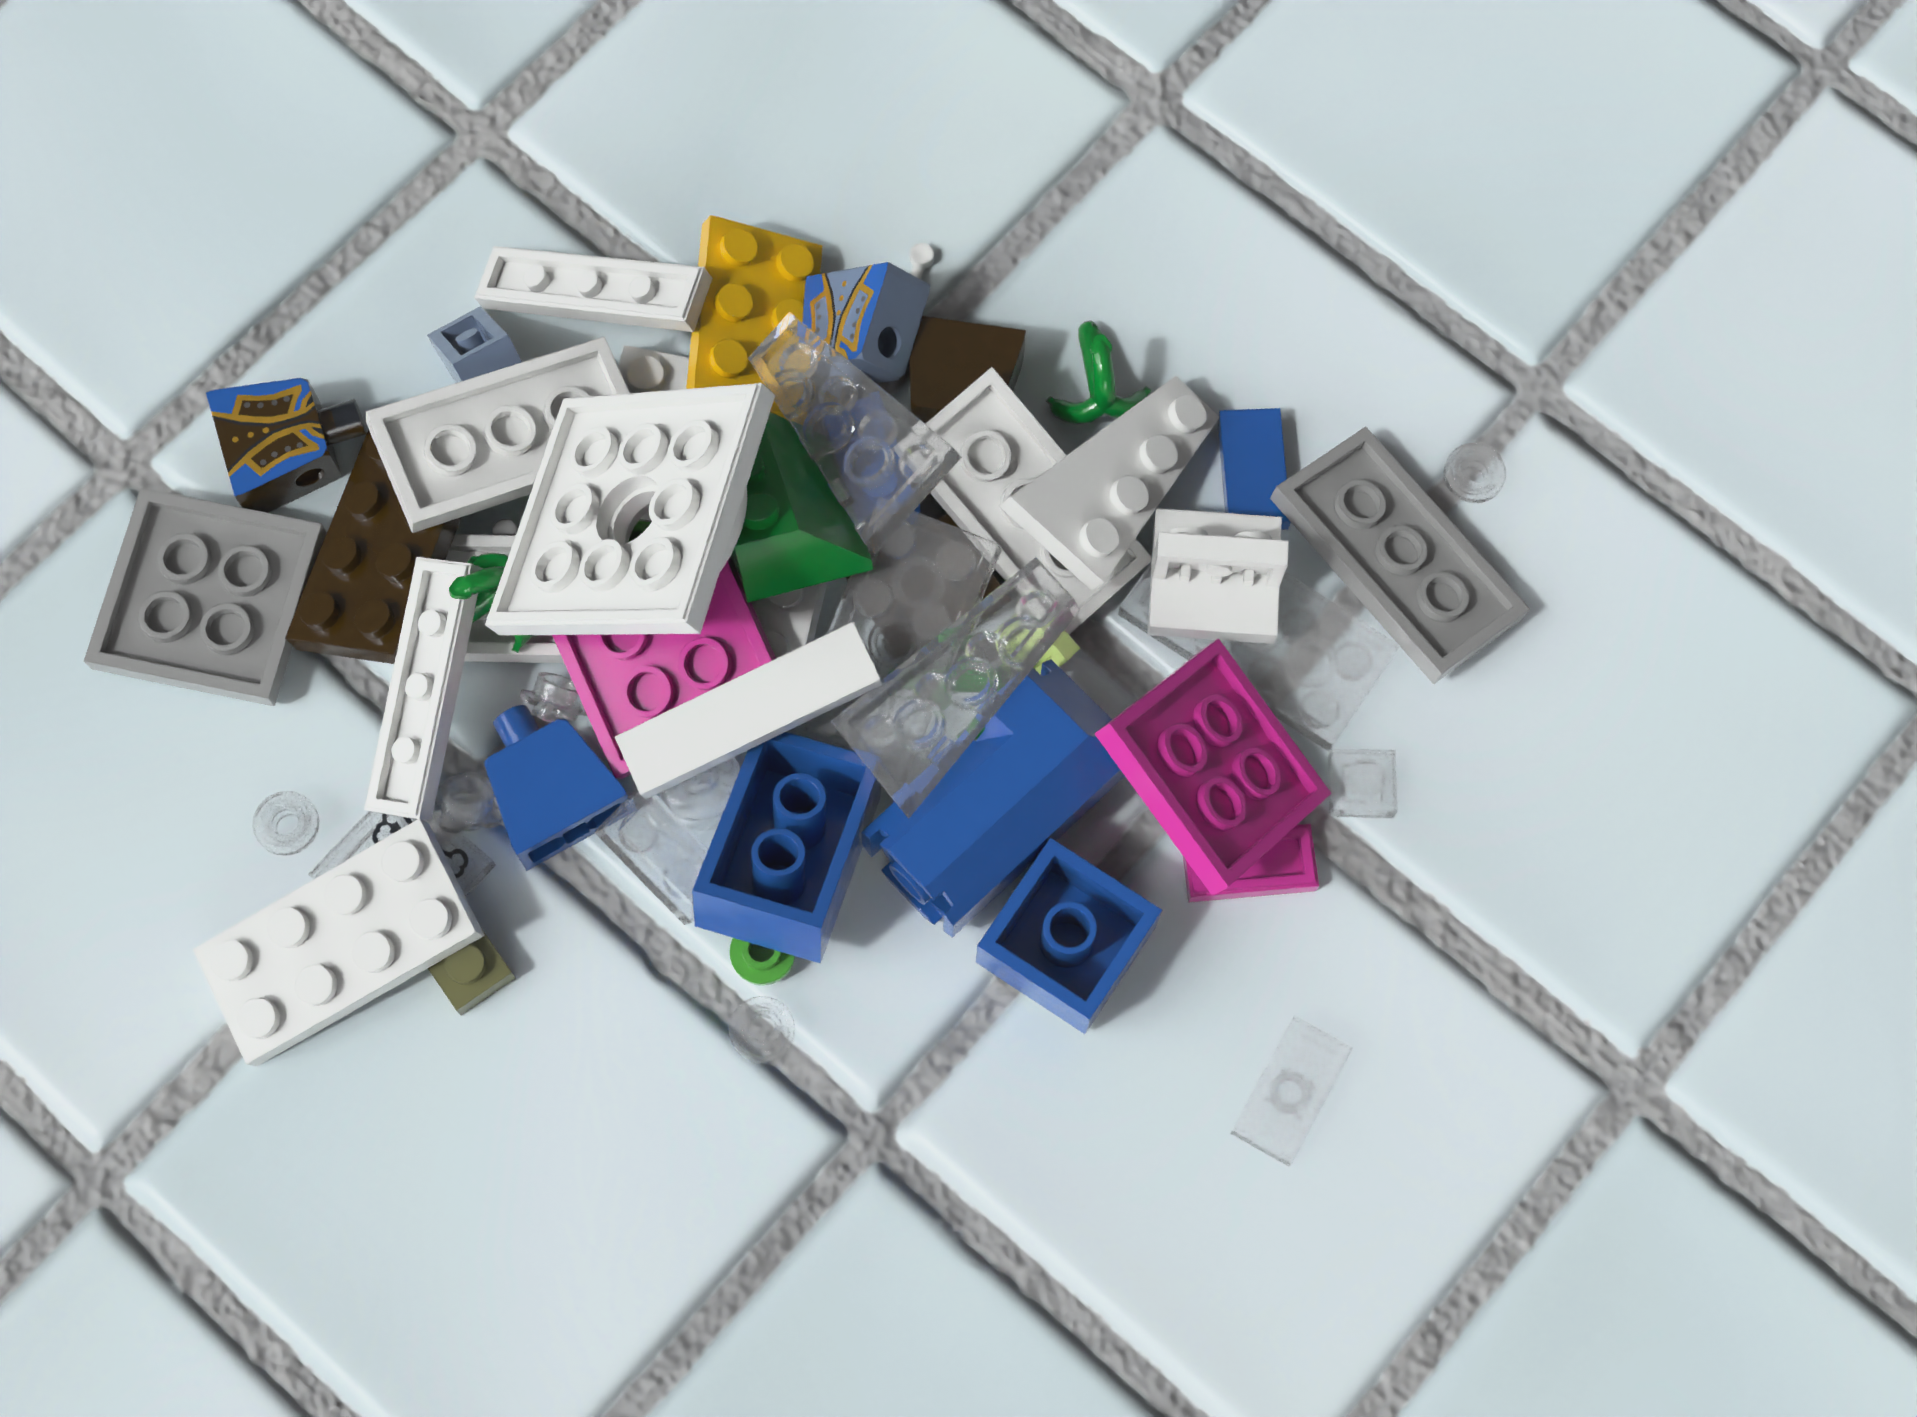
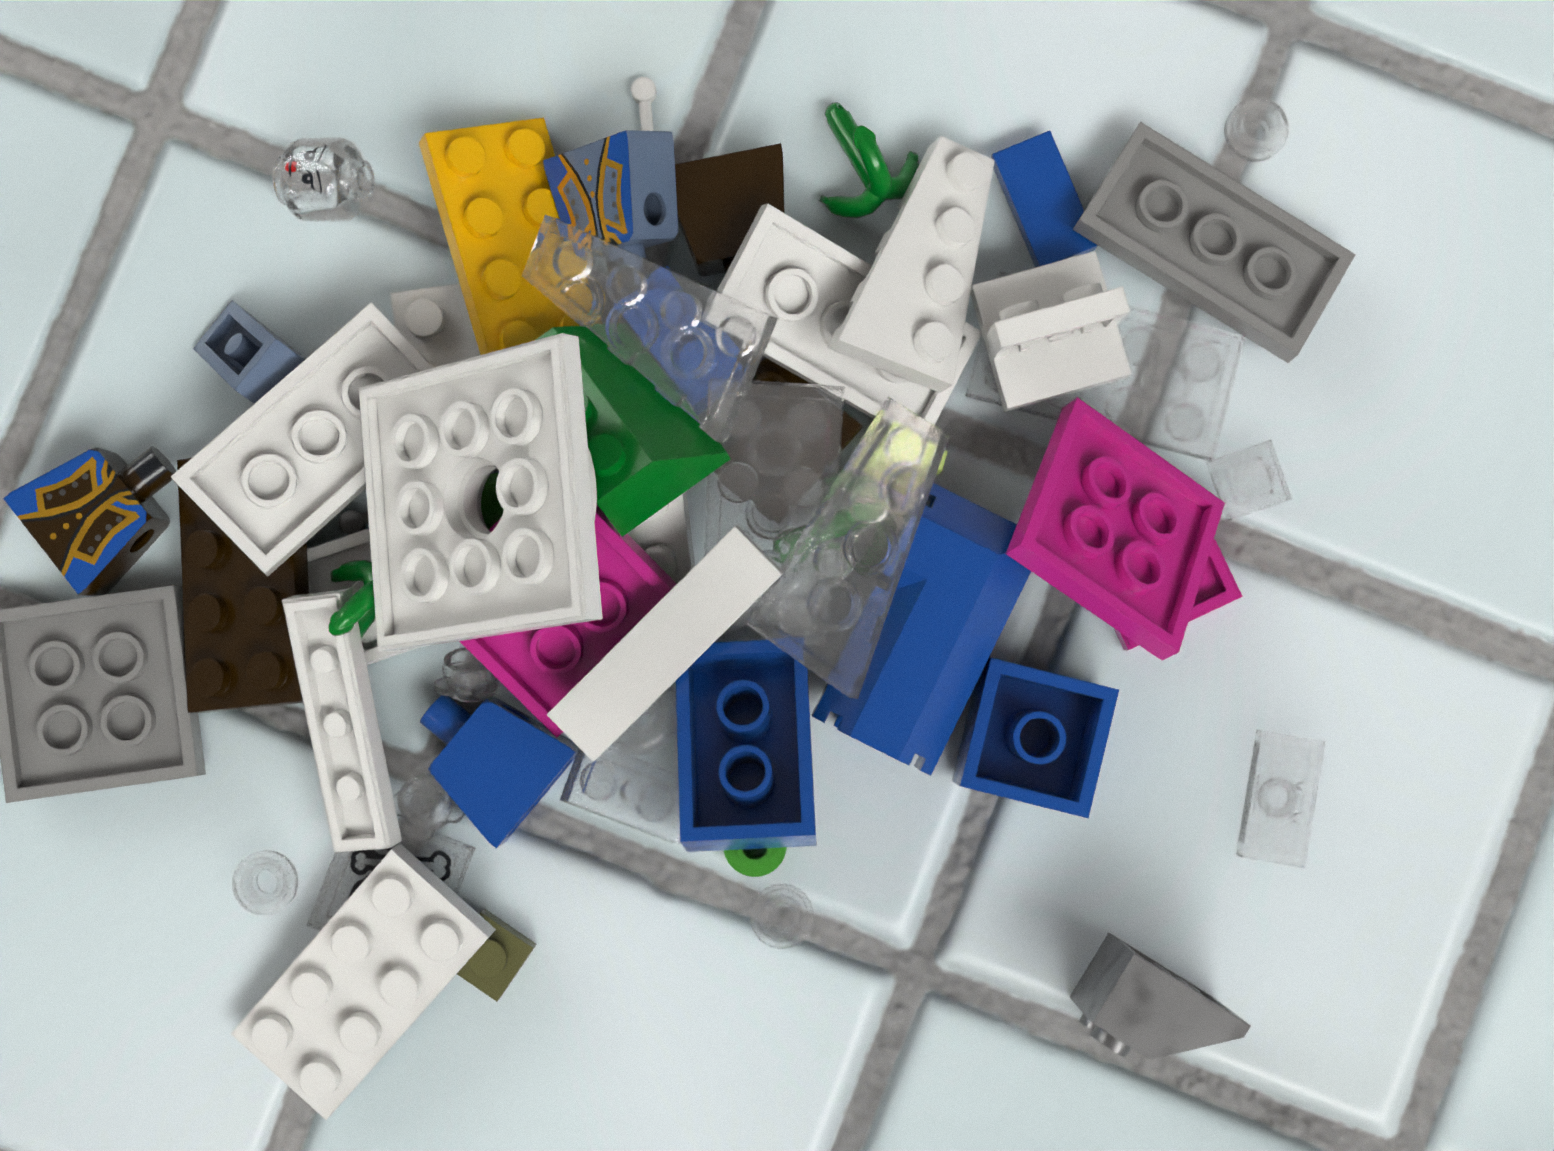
camera: 20 degrees left, 15 degrees up
(594, 288) = (339, 249): white tile -> none
(605, 225) = (323, 179): none -> clear head
(1089, 1227) = (1147, 1007): none -> flat silver slope

